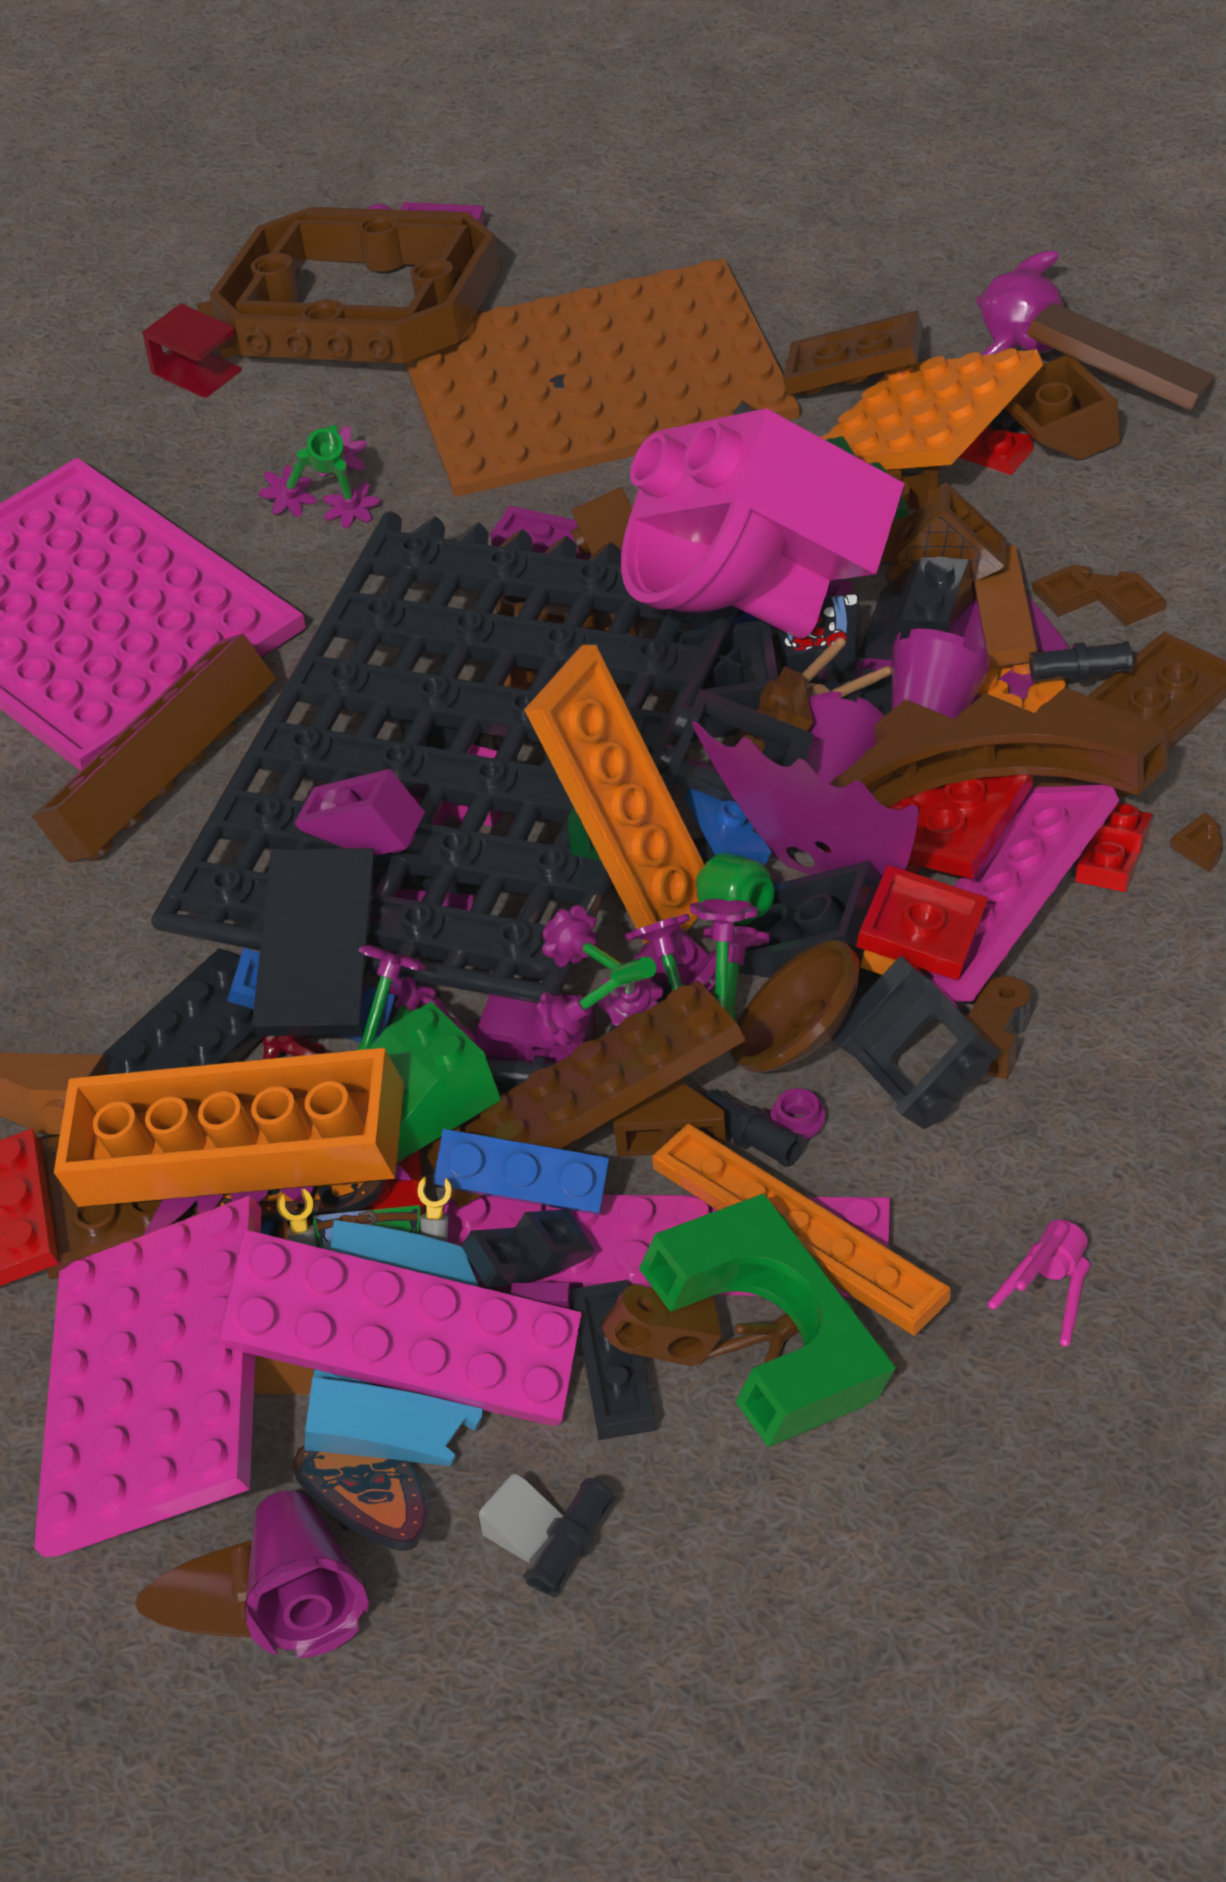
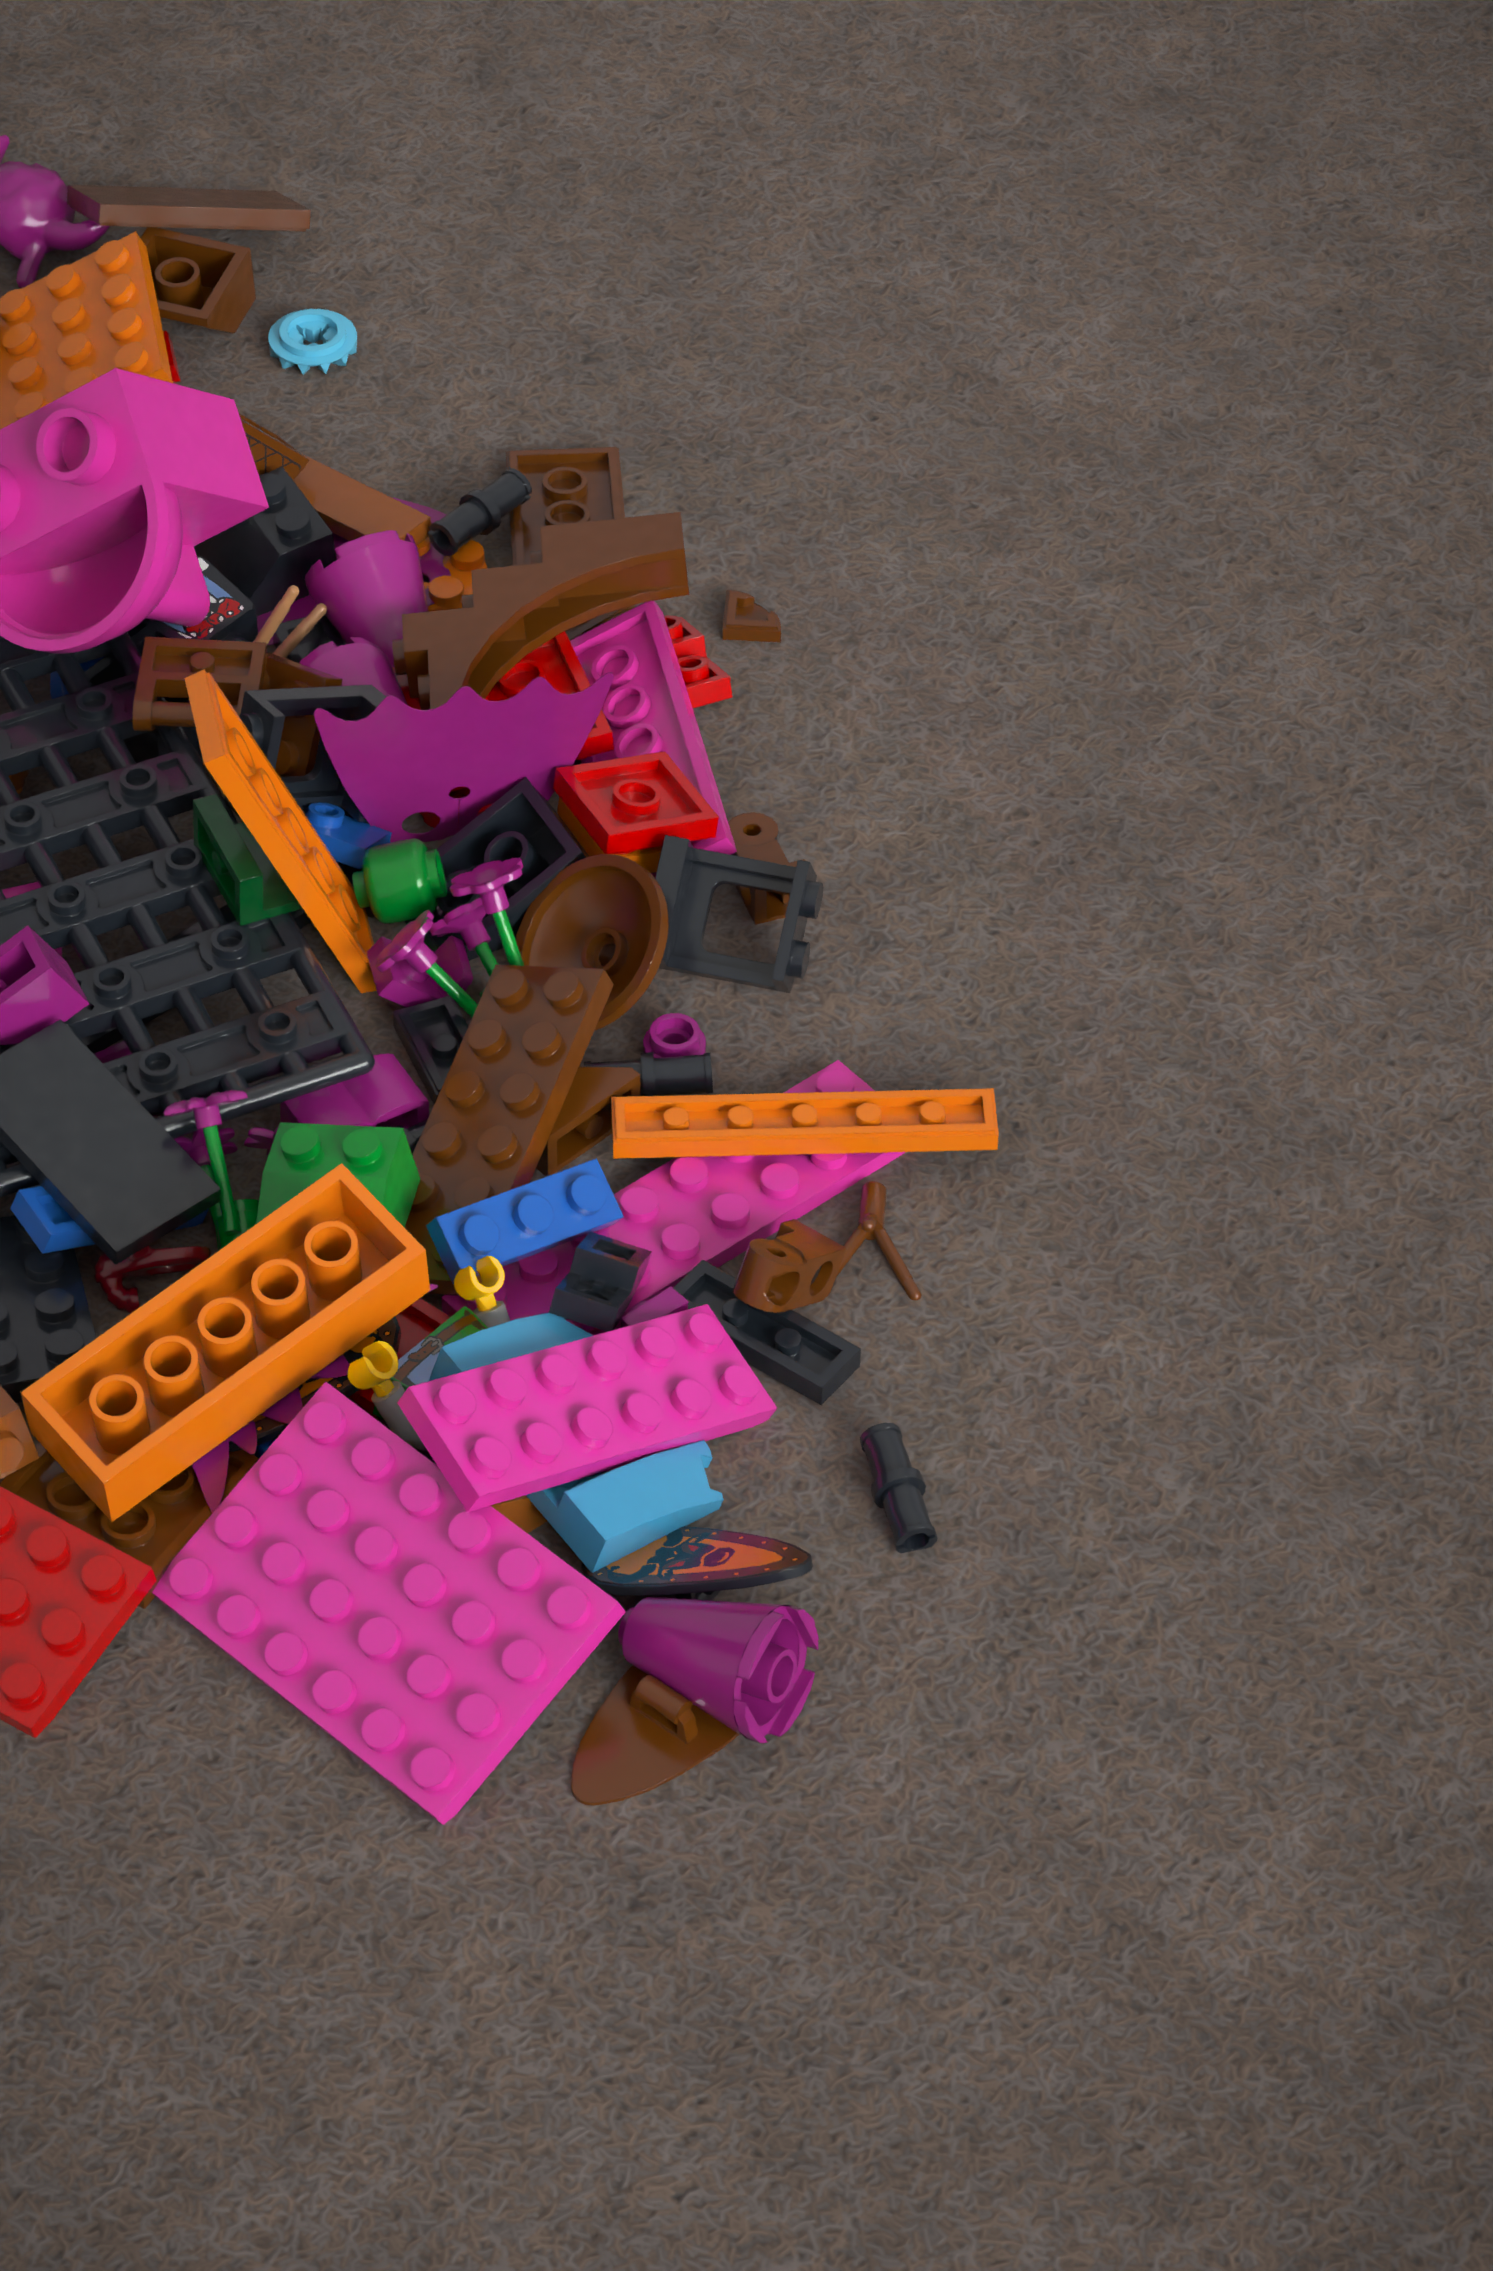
camera: 50 degrees left, 0 degrees up
(518, 1518) = (837, 1505): light grey slope -> none
(623, 994) = (426, 1019): magenta plant -> none
(723, 662) = (166, 663): none -> reddish brown plate
(757, 1253) = (953, 1199): green arch -> none
(1053, 1256) = (1031, 1020): dark pink plant -> none
(1125, 595) = (420, 435): reddish brown tile -> none
(1138, 480) = (312, 325): none -> medium azure gear

